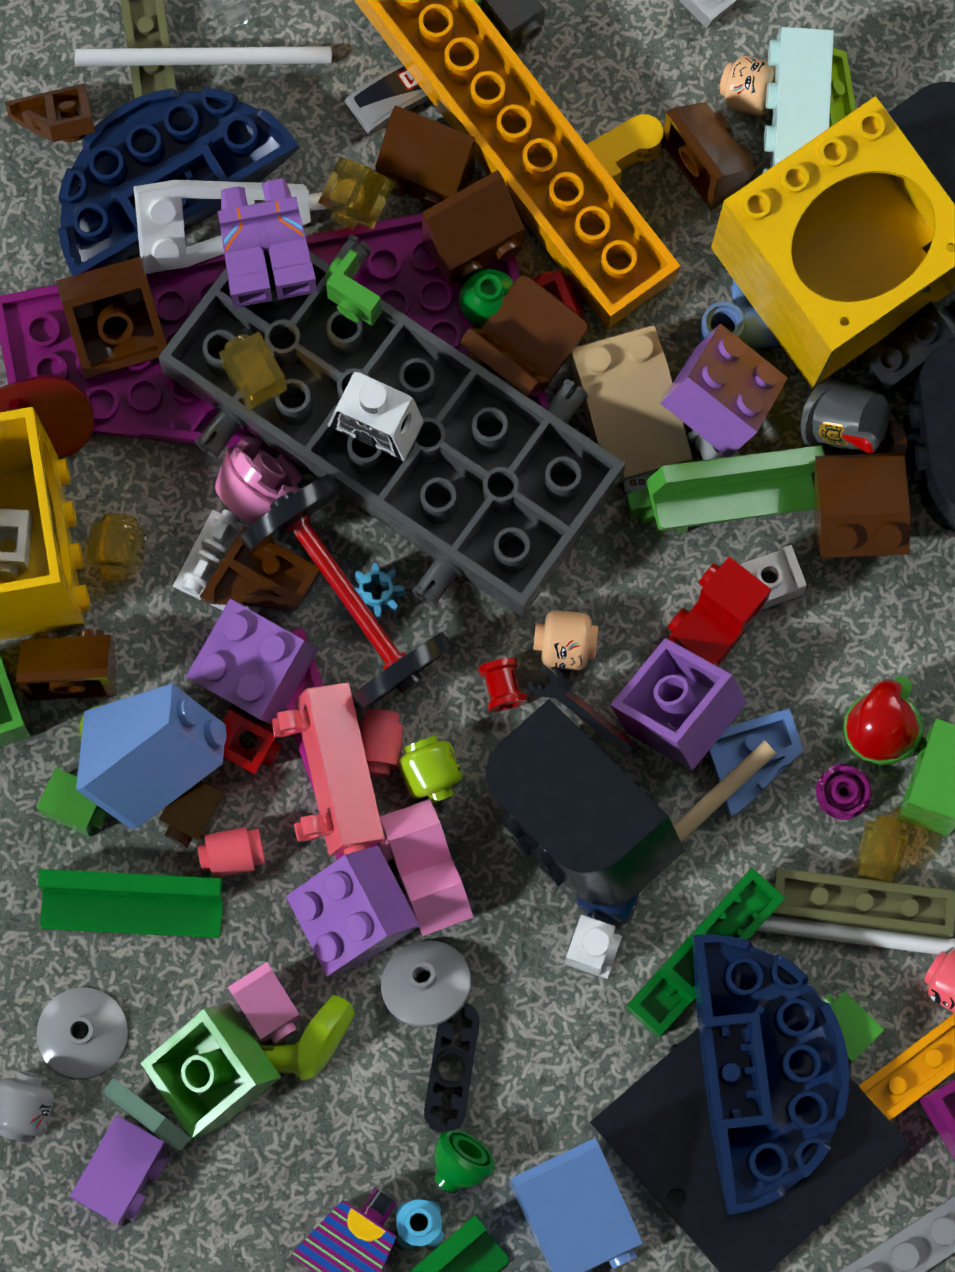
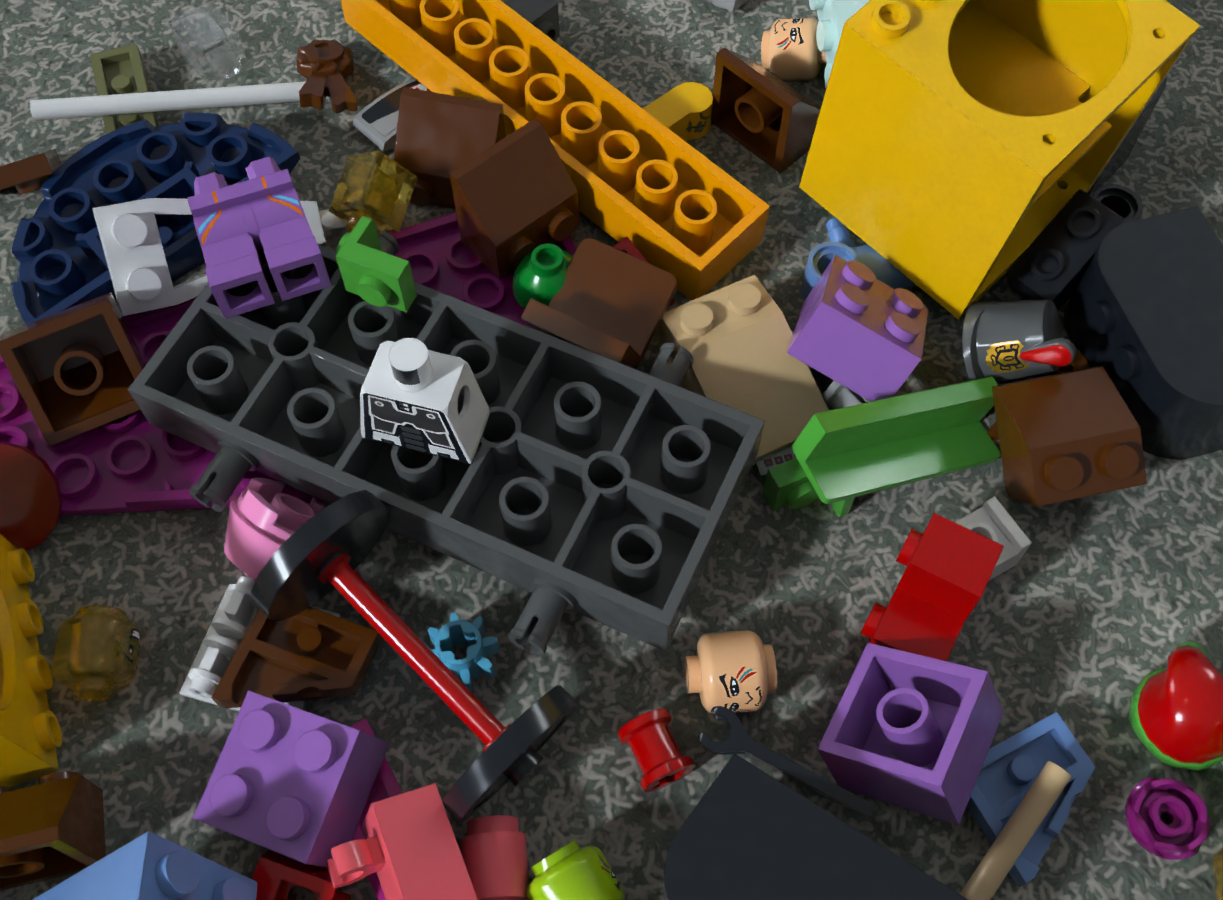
camera: 10 degrees left, 15 degrees down
(252, 369) = (251, 378): clear yellow brick -> none
(327, 31) = (326, 66): none -> reddish brown piece

